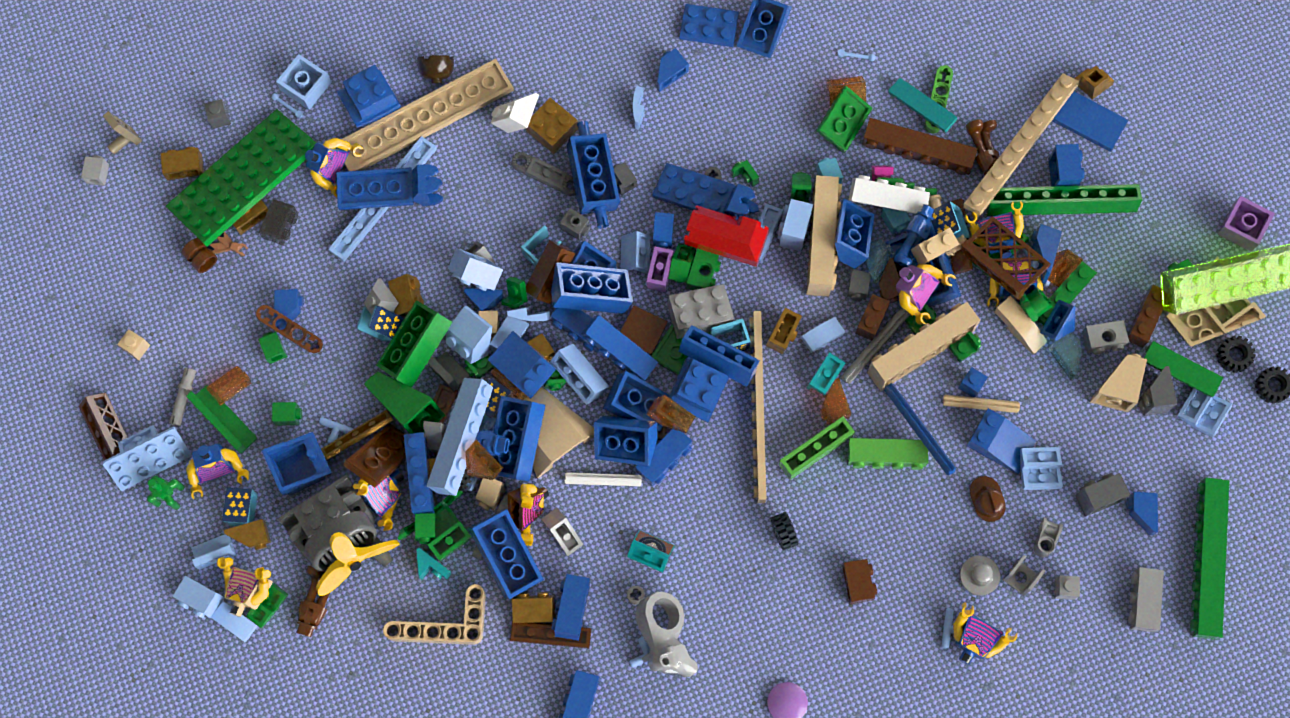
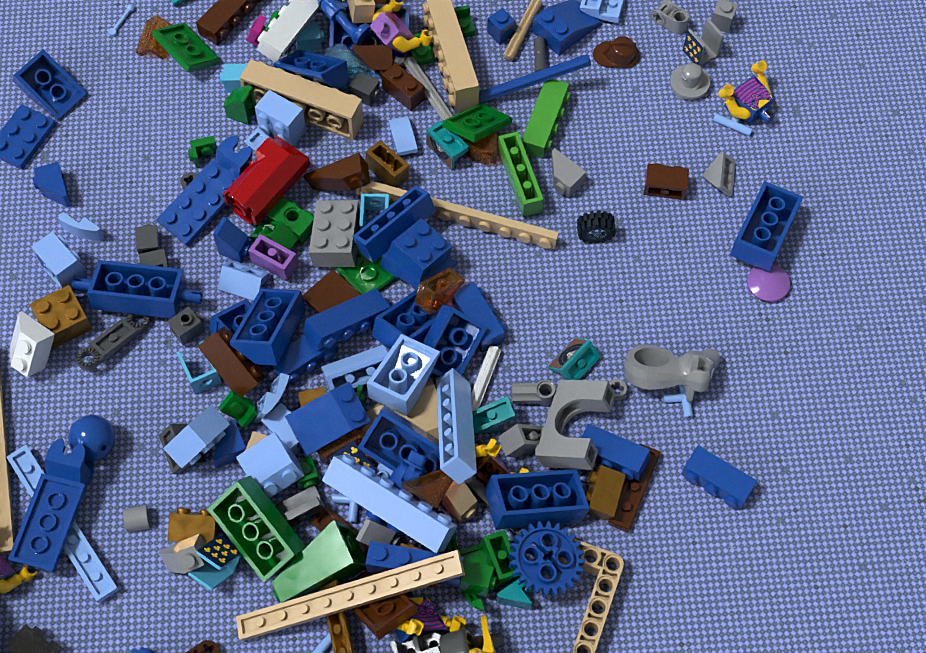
camera: 75 degrees left, 10 degrees down
(378, 434) = (350, 595): none -> tan plate
(403, 251) = (136, 518): none -> light grey brick
(439, 567) = (531, 570): none -> blue gear
(454, 191) = (95, 435): none -> blue piece
(543, 467) = (455, 427): none -> light blue brick
(572, 496) = (491, 416): none -> teal slope
(579, 410) = (402, 374): none -> light blue slope
(596, 104) = (58, 260): none -> light blue brick
(606, 555) = (569, 400): none -> light grey arch
(607, 523) = (530, 393): none -> light grey piece
(643, 164) = (147, 238): none -> dark grey brick
(758, 300) = (341, 175): none -> reddish brown slope
(832, 488) = (566, 174): none -> light grey slope
(838, 684) = (766, 226): none -> blue brick
(854, 394) = (477, 122): none -> green tile
(886, 631) = (721, 173): none -> light grey slope
(953, 429) = (539, 53): none -> dark grey piece

